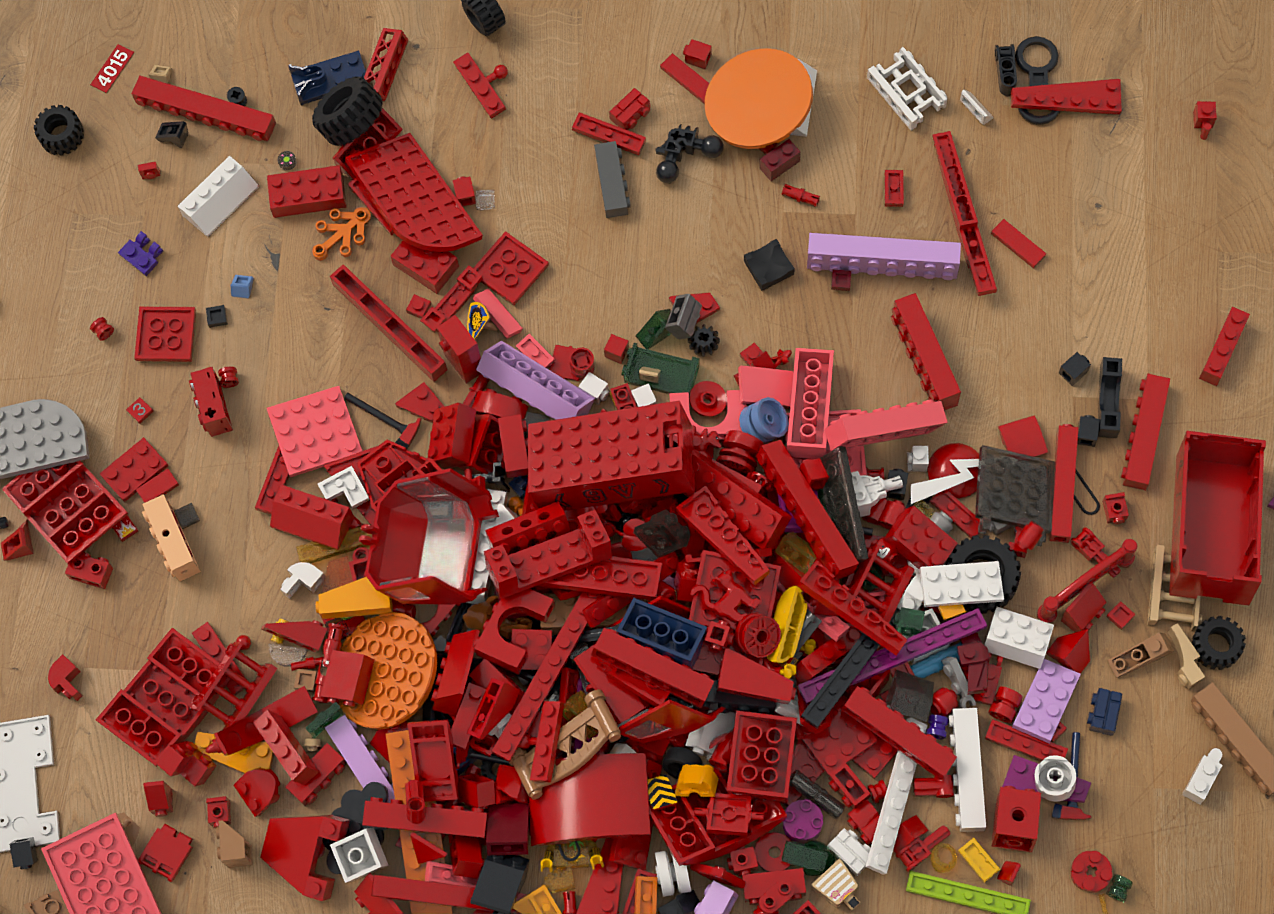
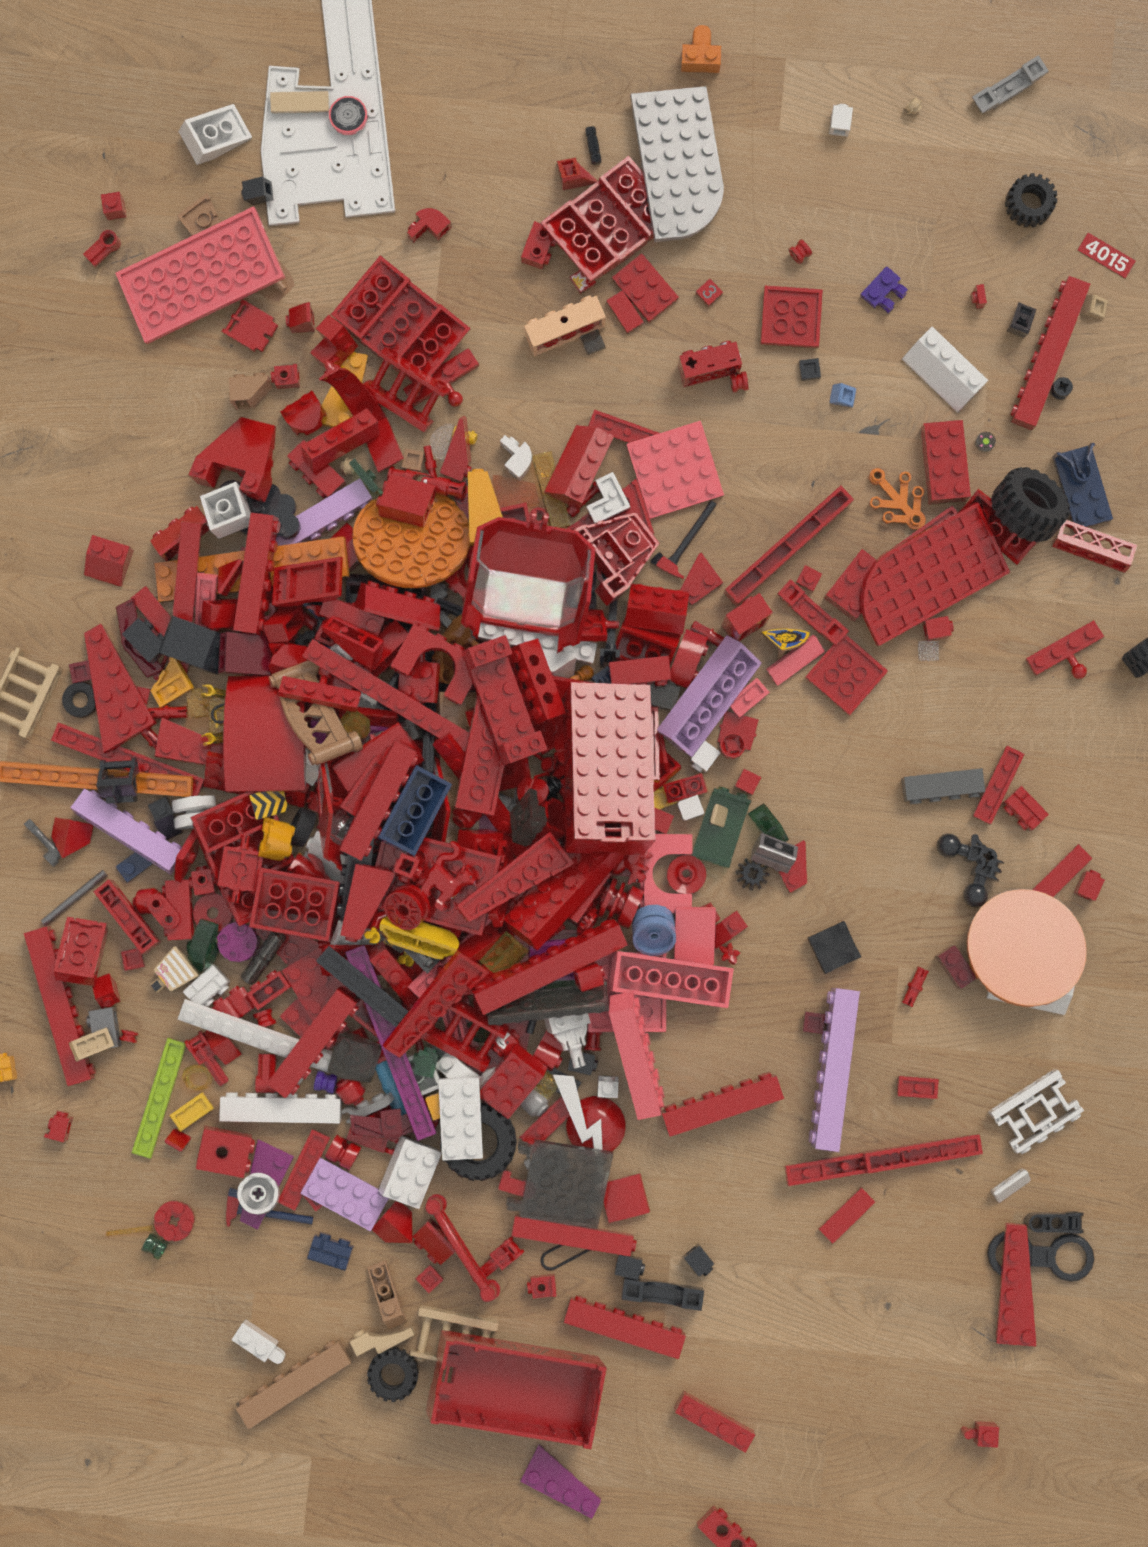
camera: 85 degrees right, 15 degrees up
(415, 801) = (269, 563): red piece -> none
(1029, 536) = (511, 1193): red brick -> none

